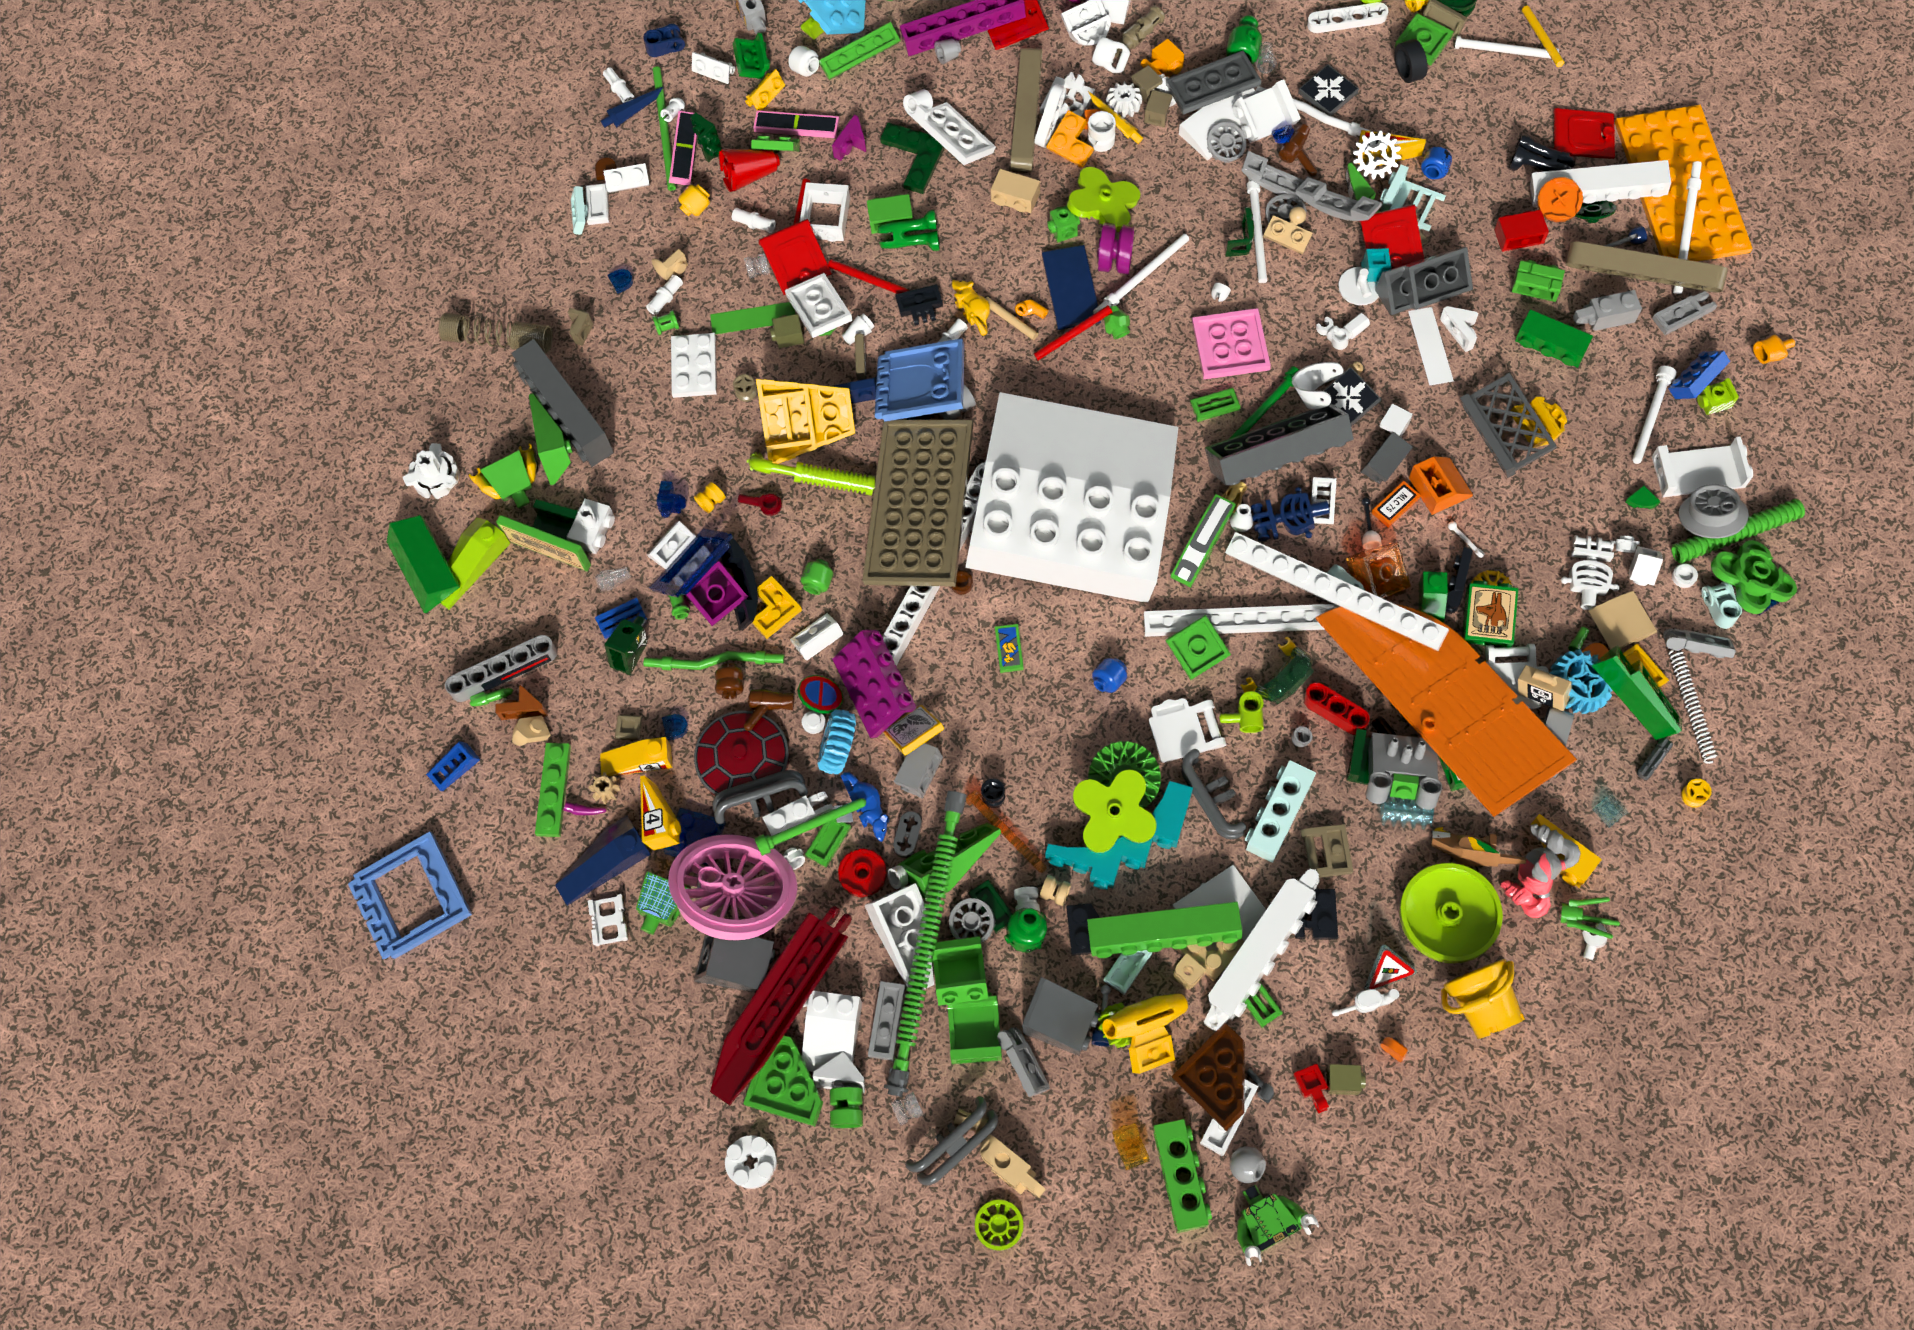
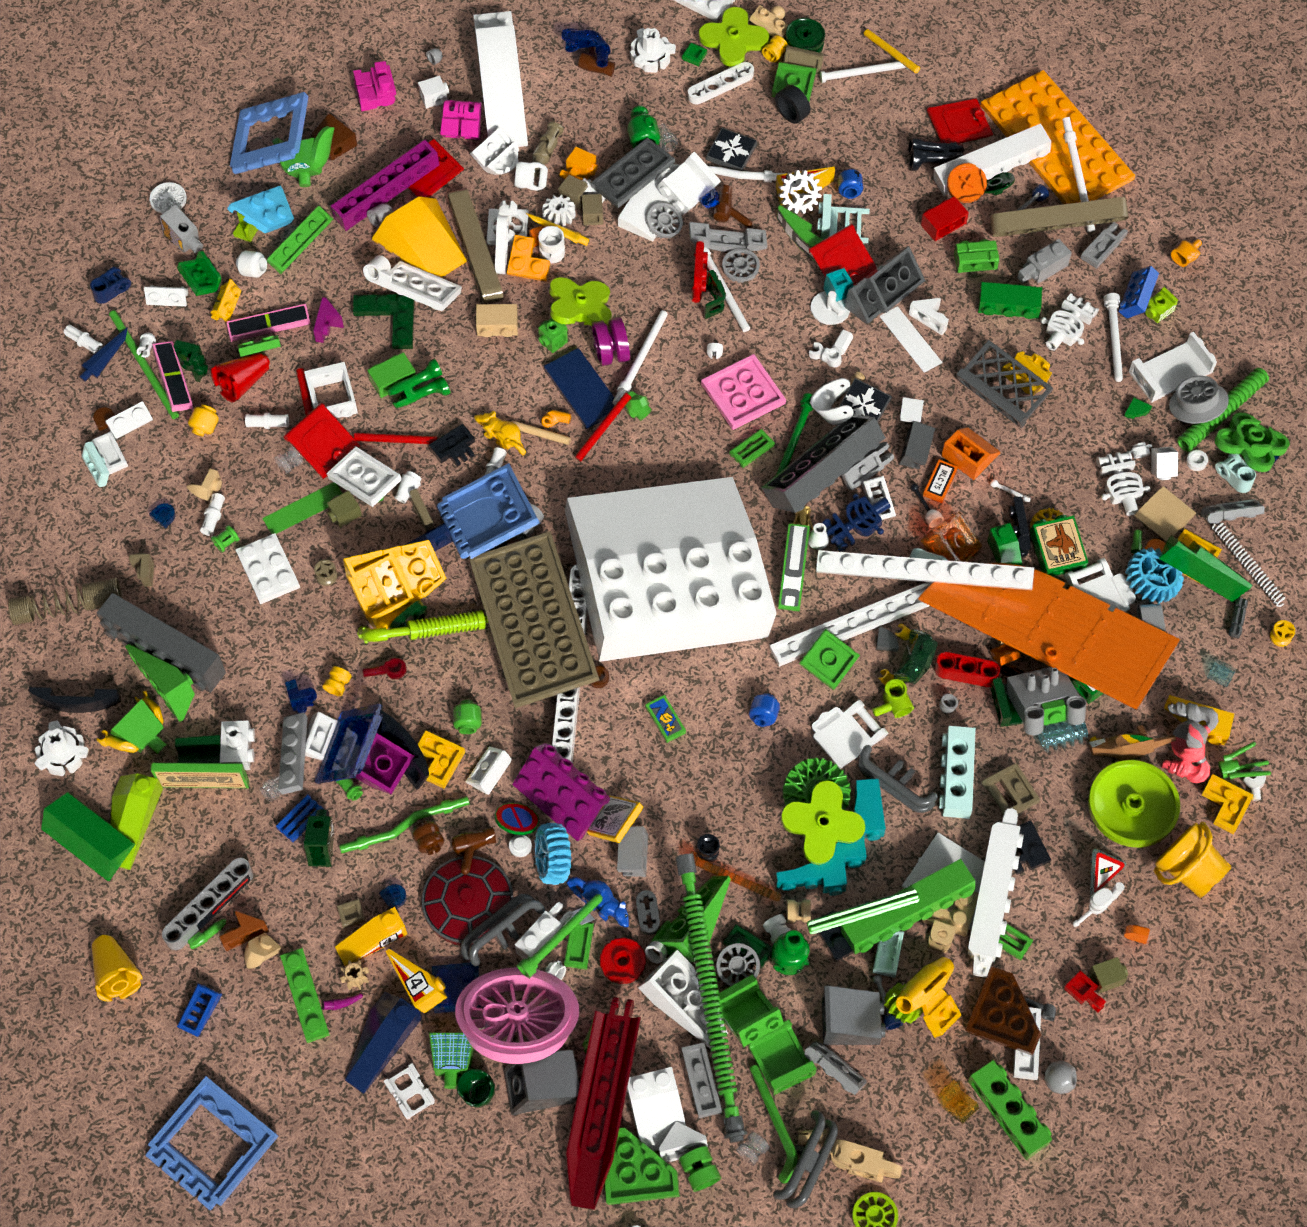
camera: 30 degrees left, 5 degrees down
(390, 698) = (113, 970): none -> yellow cone
(486, 439) = (74, 704): none -> black slope
(637, 553) = (293, 753): none -> light grey plate
(669, 942) = (476, 1088): none -> dark green hair
(811, 455) = (413, 612): none -> dark green plate
(942, 1075) = (790, 1150): none -> bright green piece
(978, 84) = (421, 237): none -> yellow wedge
(1114, 917) = (863, 911): none -> axle
(1236, 206) = (700, 272): none -> red plate
(1266, 649) = (887, 640): none -> dark grey tile
(1269, 1222) = (1099, 1117): bright green torso -> none
(1288, 233) = (751, 281): tan plate -> none
(1325, 463) = (868, 467): none -> light grey hinge
(1336, 205) = (781, 244): light grey slope -> none
(1382, 708) = (1004, 654): none -> orange tile
(1544, 687) = (1128, 590): tan piece -> none
(1560, 947) = (1231, 798): none -> yellow plate
(1602, 383) = (1067, 324): none -> white torso

